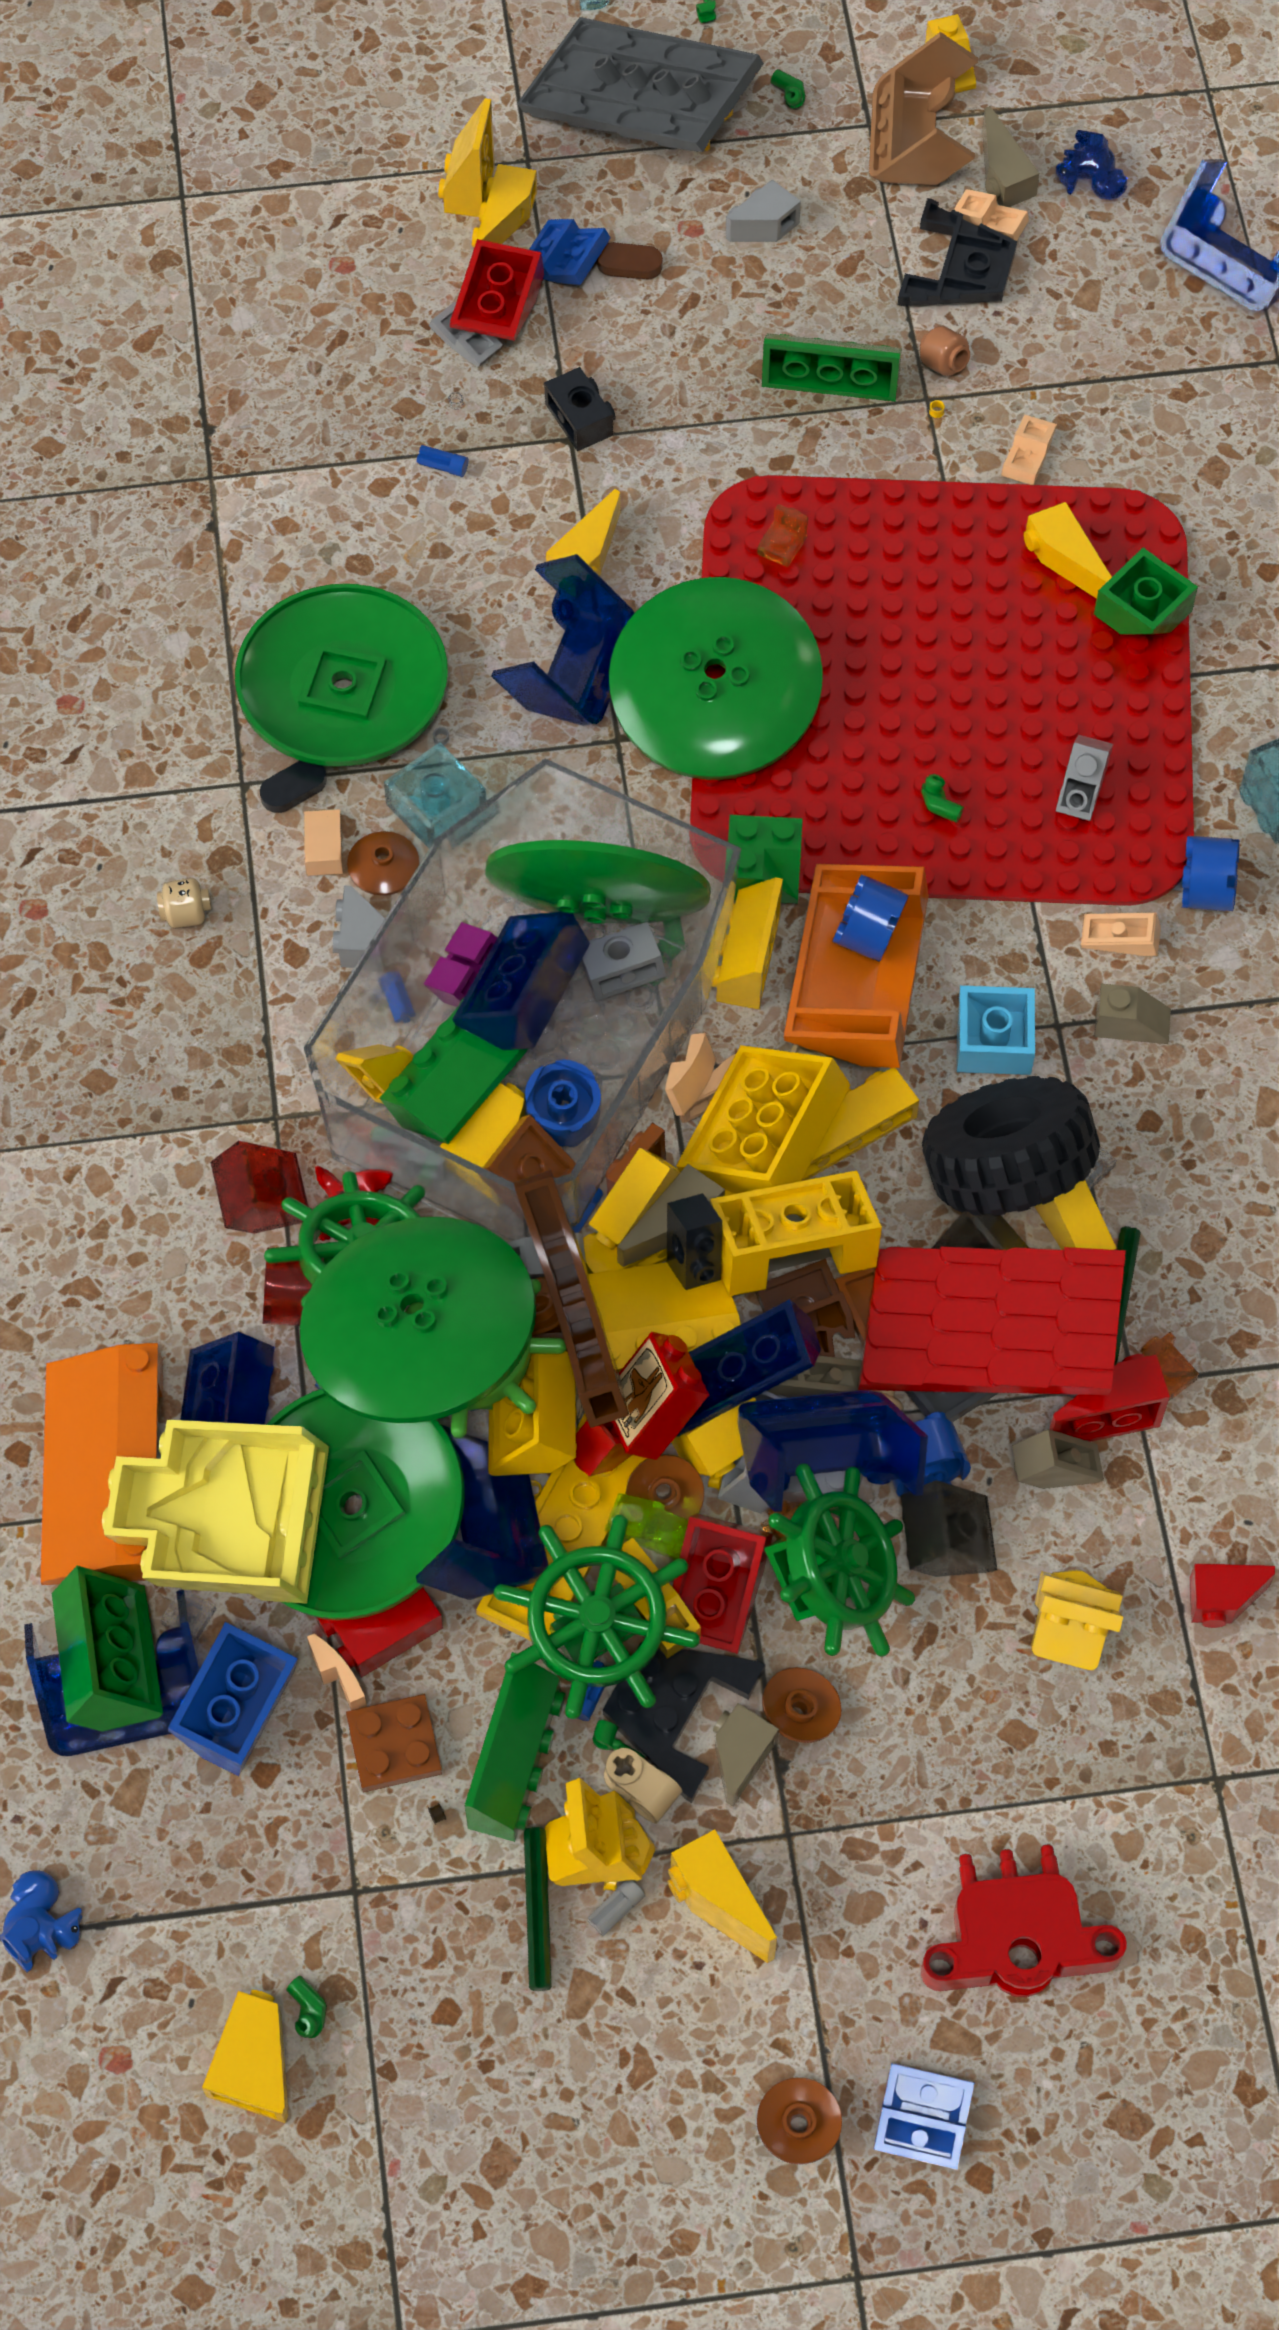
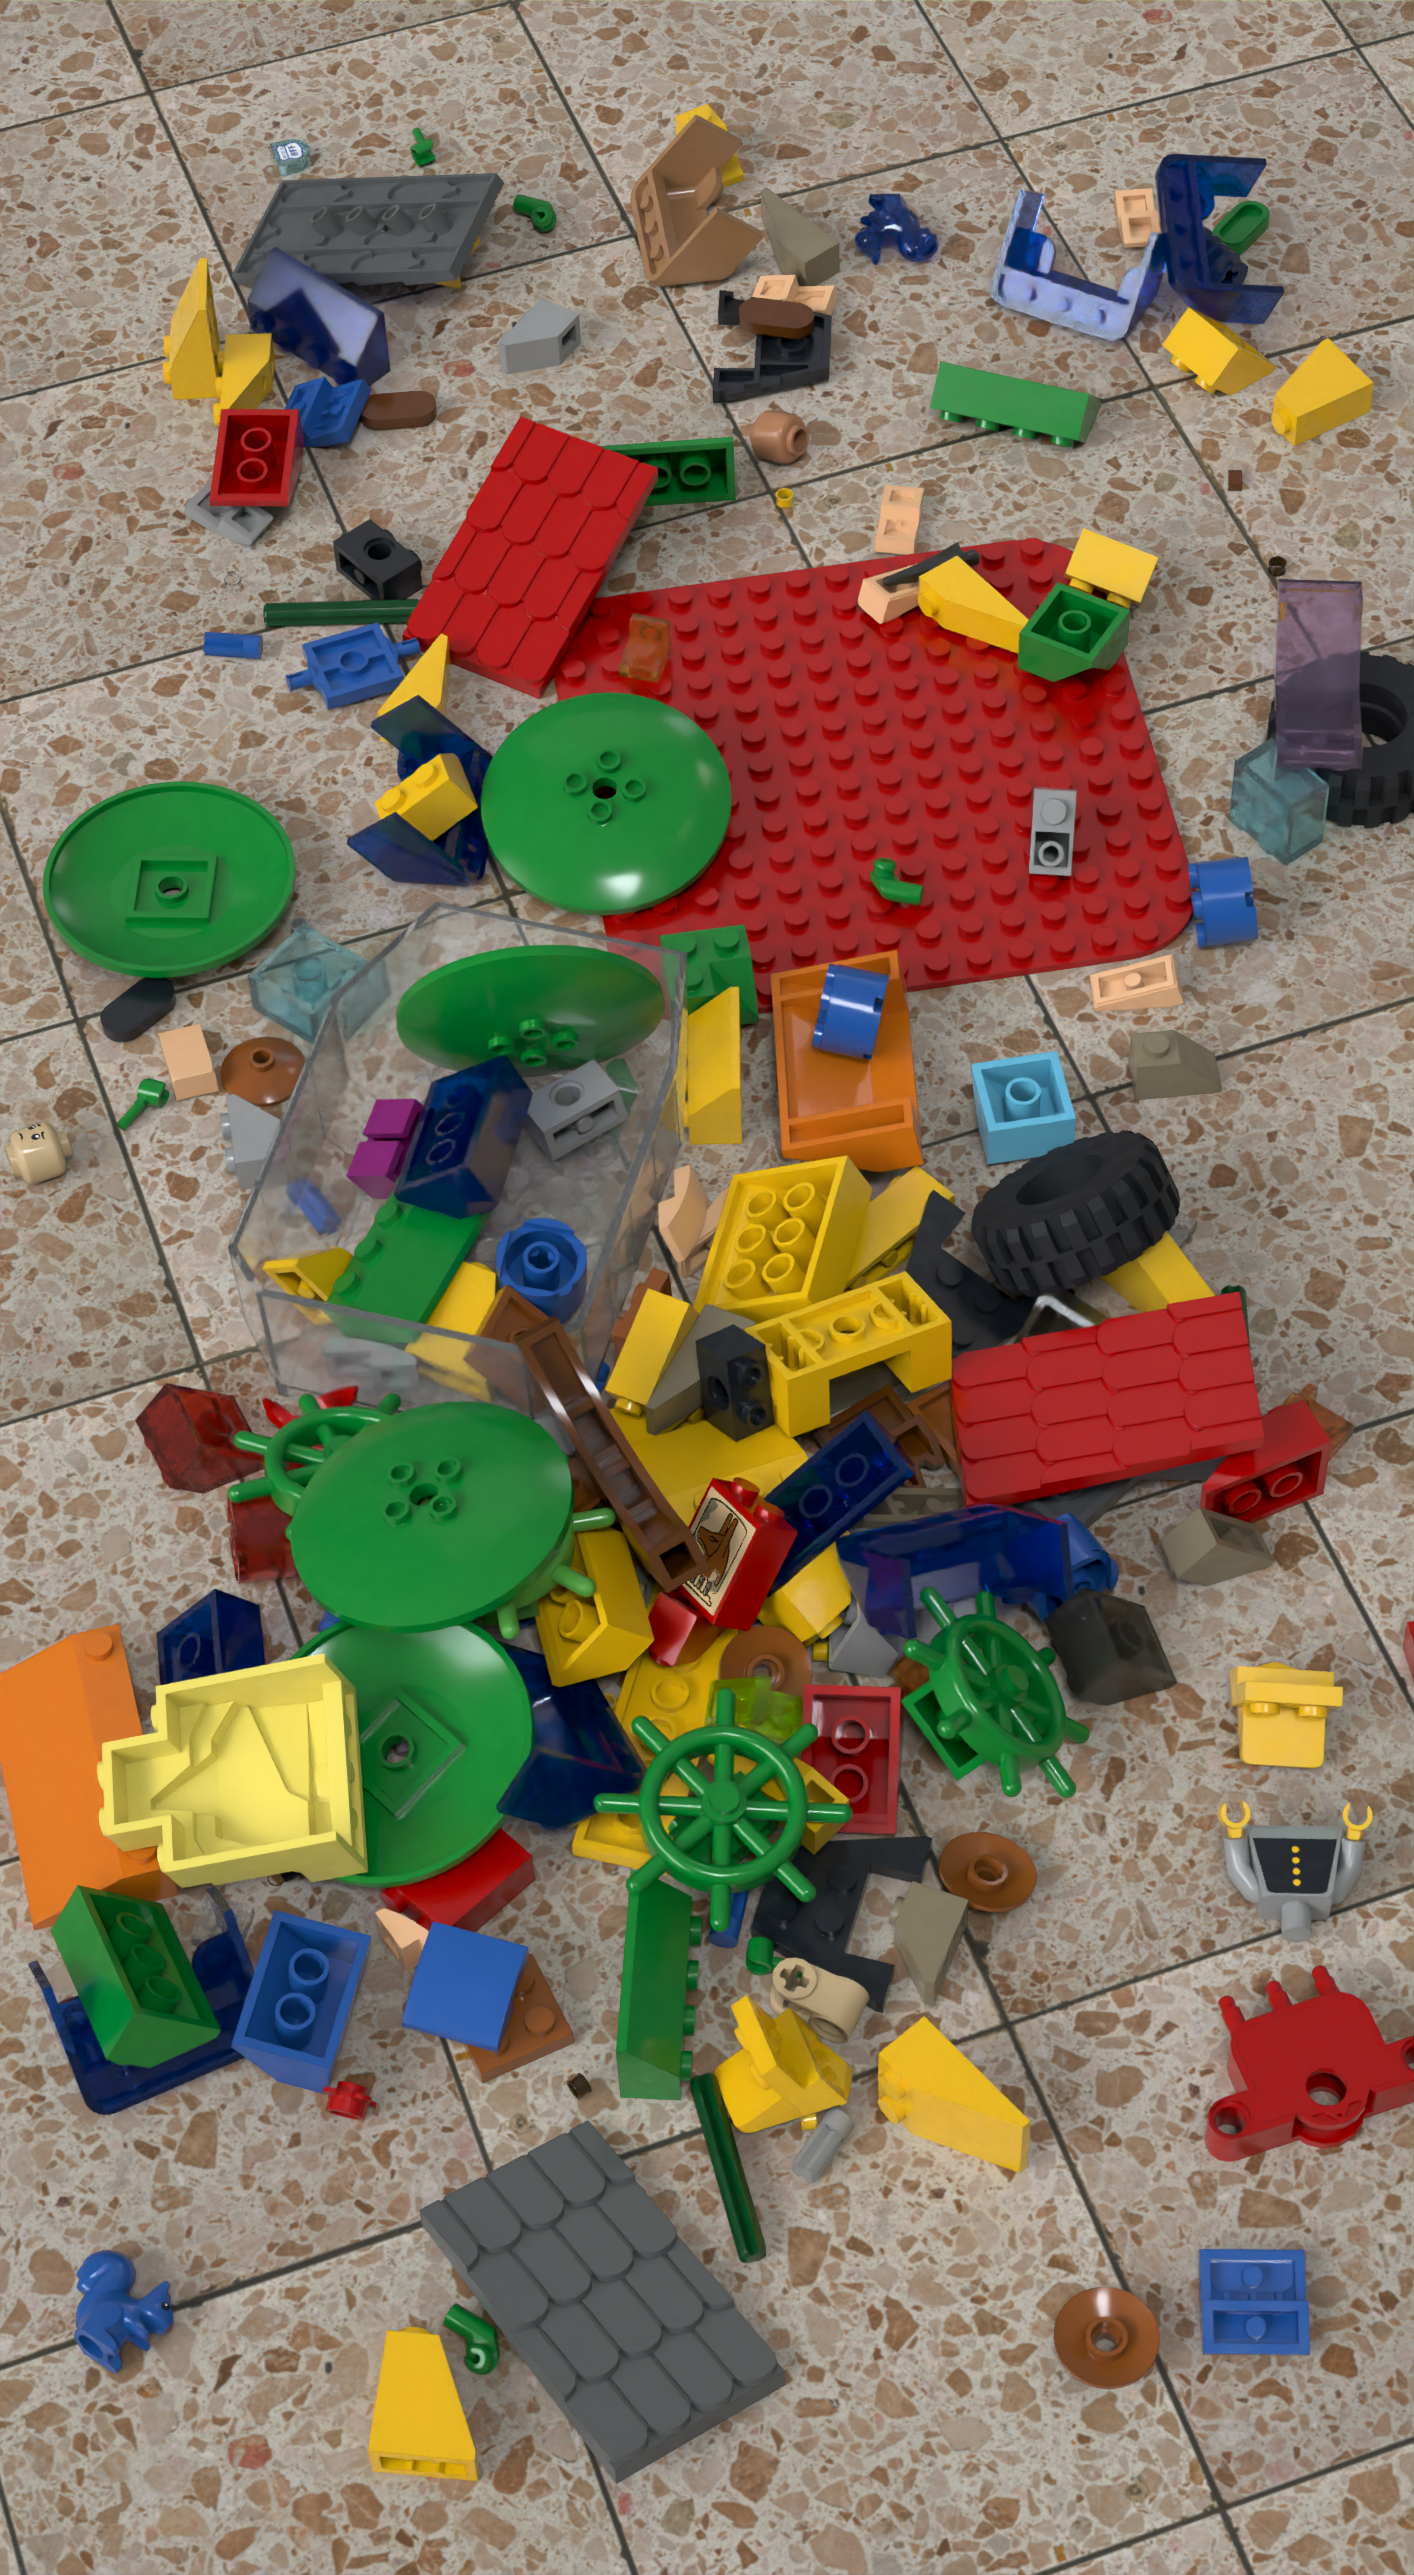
camera: 10 degrees left, 10 degrees down
(253, 1787) = (348, 2100): none -> red plate
(285, 865) = (149, 1092): none -> green hand
(363, 1715) = (465, 1986): none -> blue slope
(413, 2000) = (603, 2300): none -> dark grey piece
(537, 500) = (353, 665): none -> blue plate
(540, 447) = (338, 612): none -> dark green axle
(569, 645) = (431, 797): none -> yellow slope
(578, 166) = (319, 321): none -> clear blue slope
(705, 431) = (531, 555): none -> red piece
(898, 1192) = (978, 1310): none -> black wing
(968, 236) = (776, 318): none -> reddish brown tile
(1005, 521) = (887, 602): none -> light nougat slope
(1029, 508) = (912, 573): none -> pearl dark grey piece
(1048, 1756) = (1293, 1869): none -> torso
(1153, 357) = (1014, 403): none -> green slope
(1194, 538) = (1110, 568): none -> yellow slope

